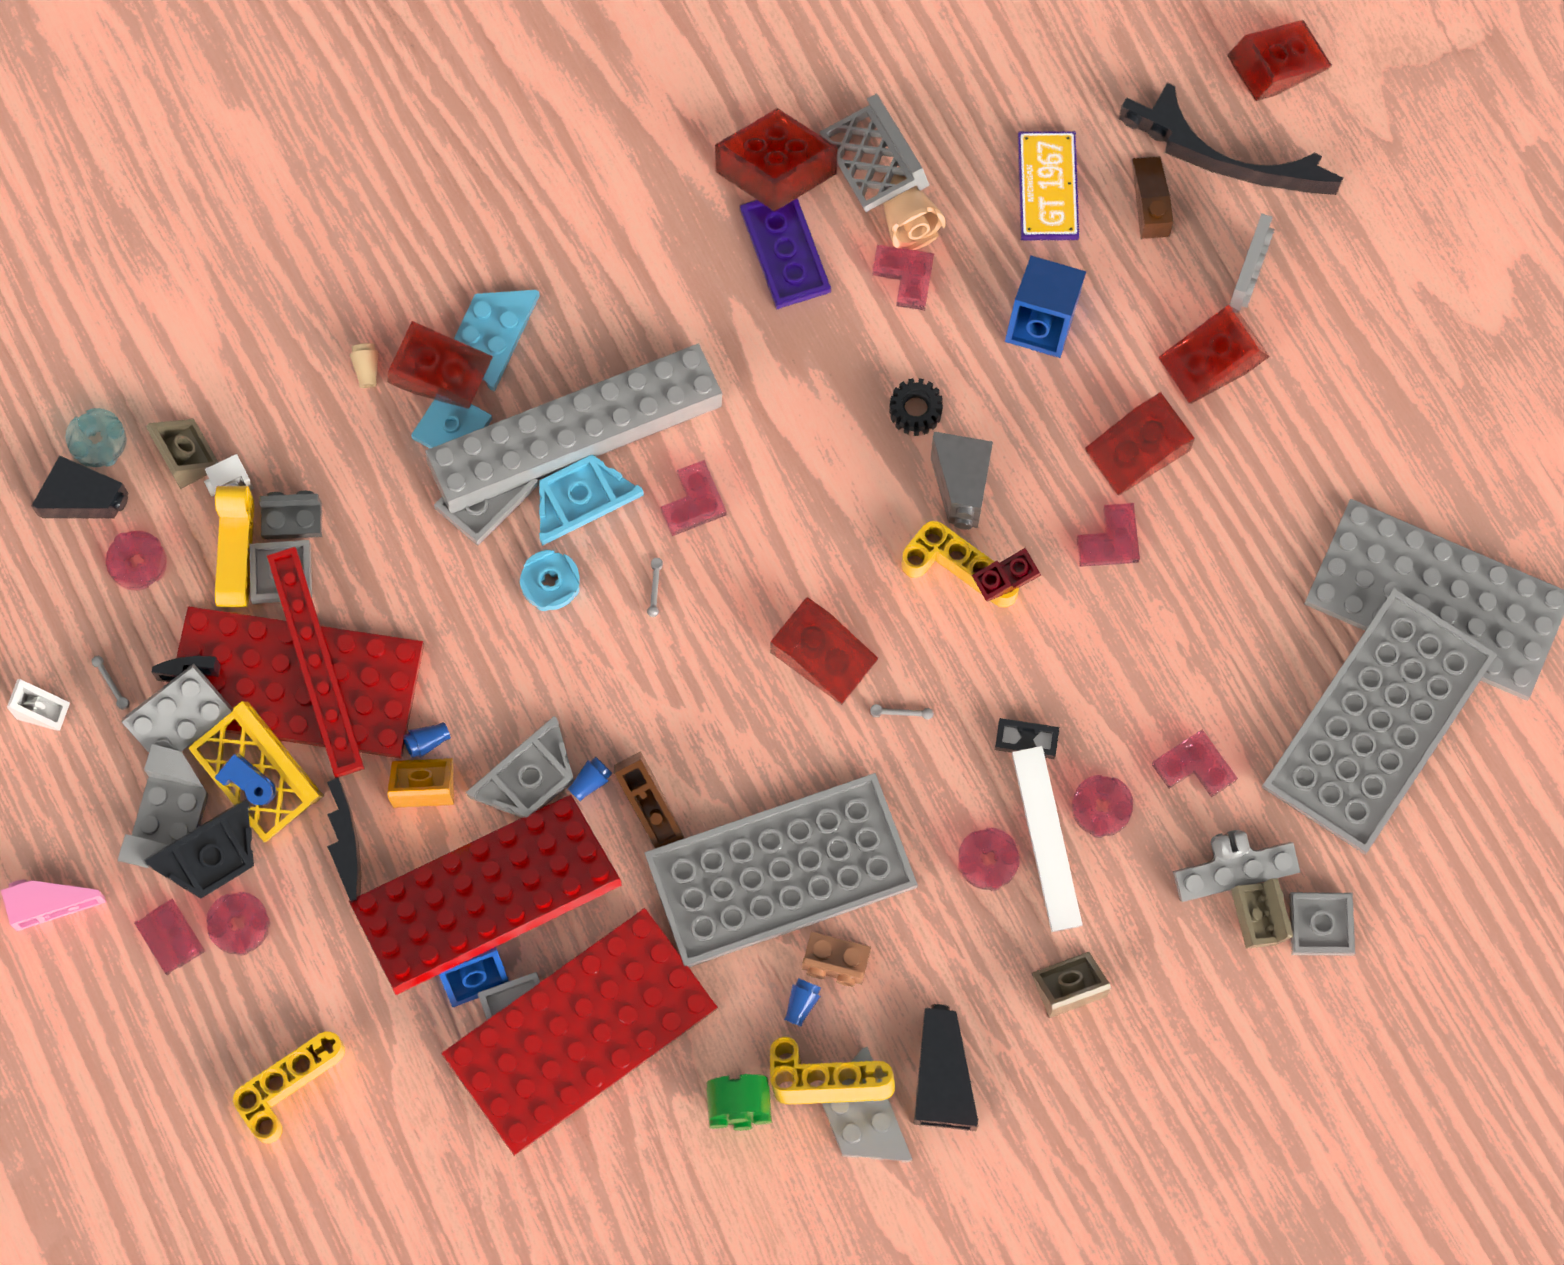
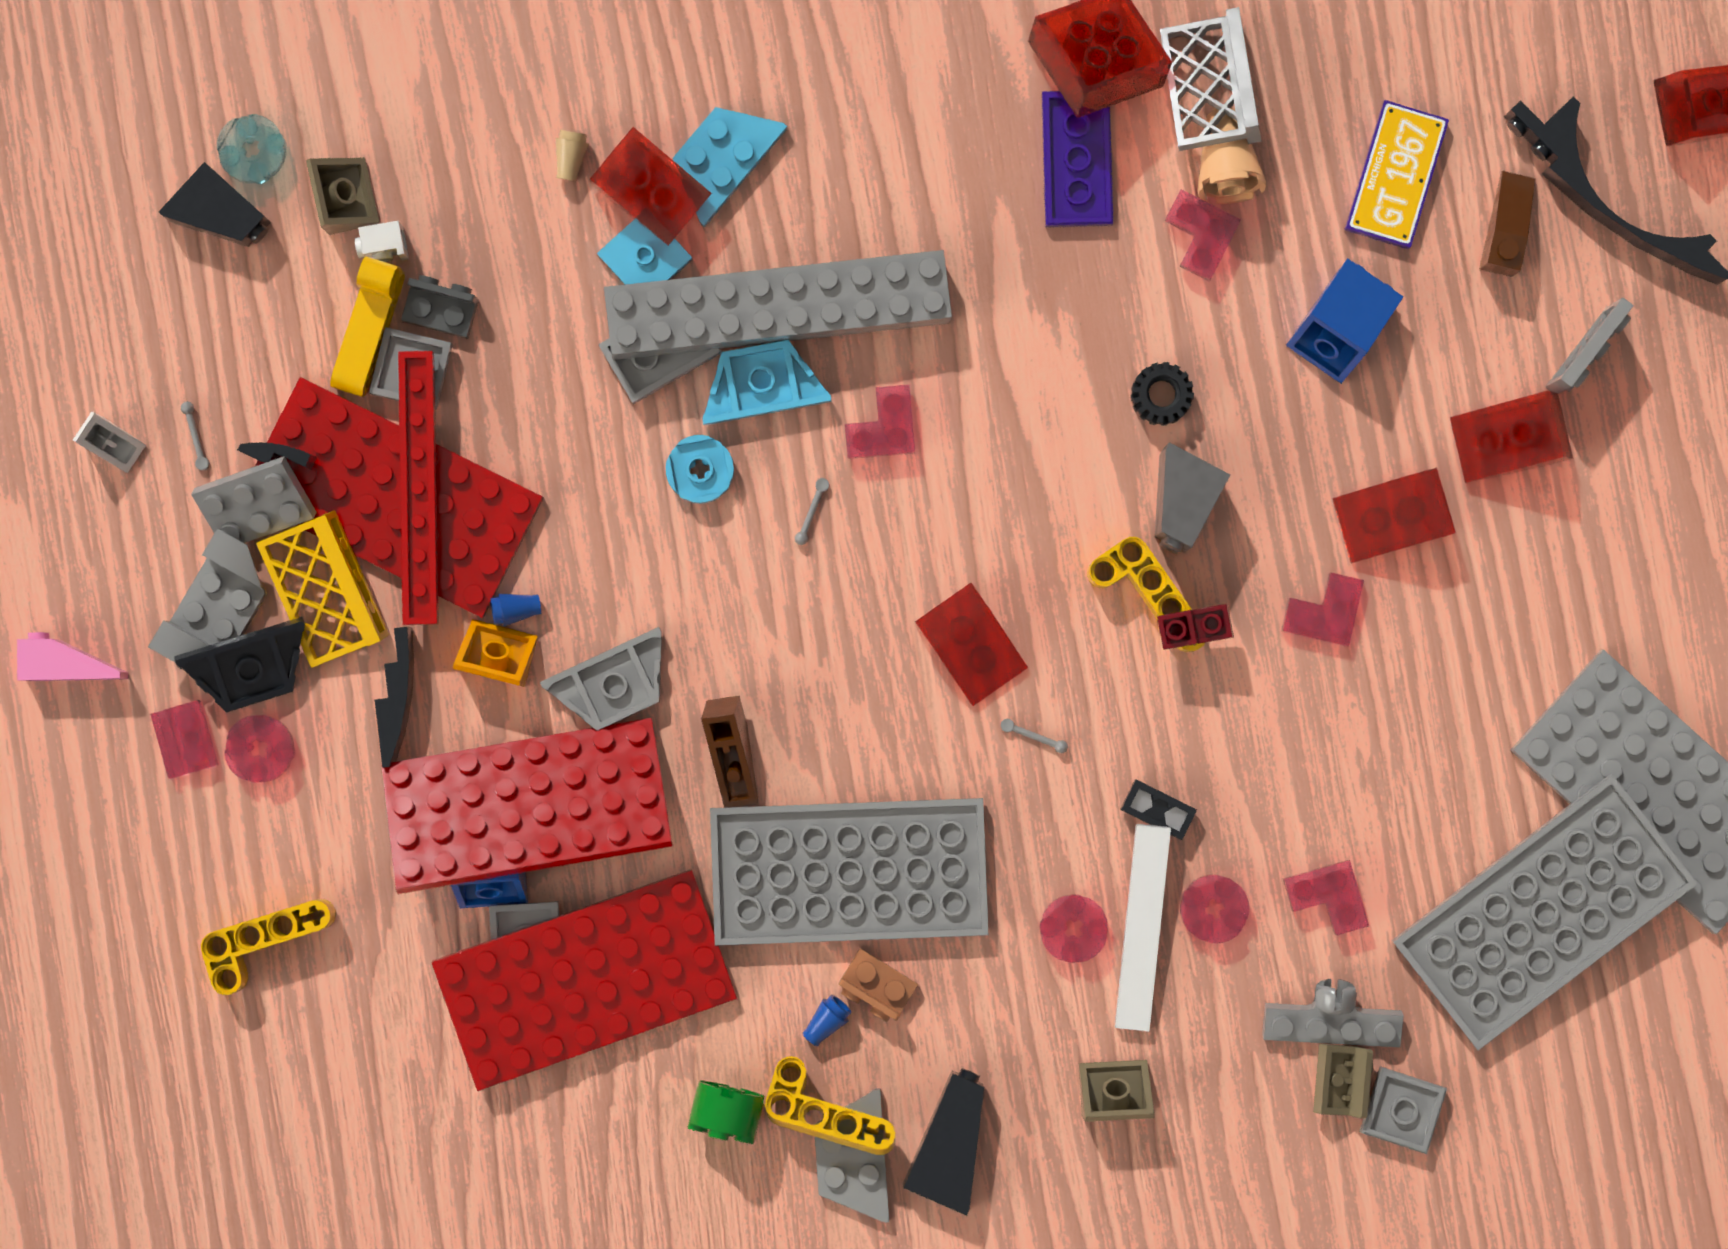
camera: 15 degrees right, 15 degrees up
(146, 573) = (252, 286): clear pink plate -> none
(255, 784) = (310, 600): blue leg -> none
(591, 777) = (677, 707): blue cone -> none

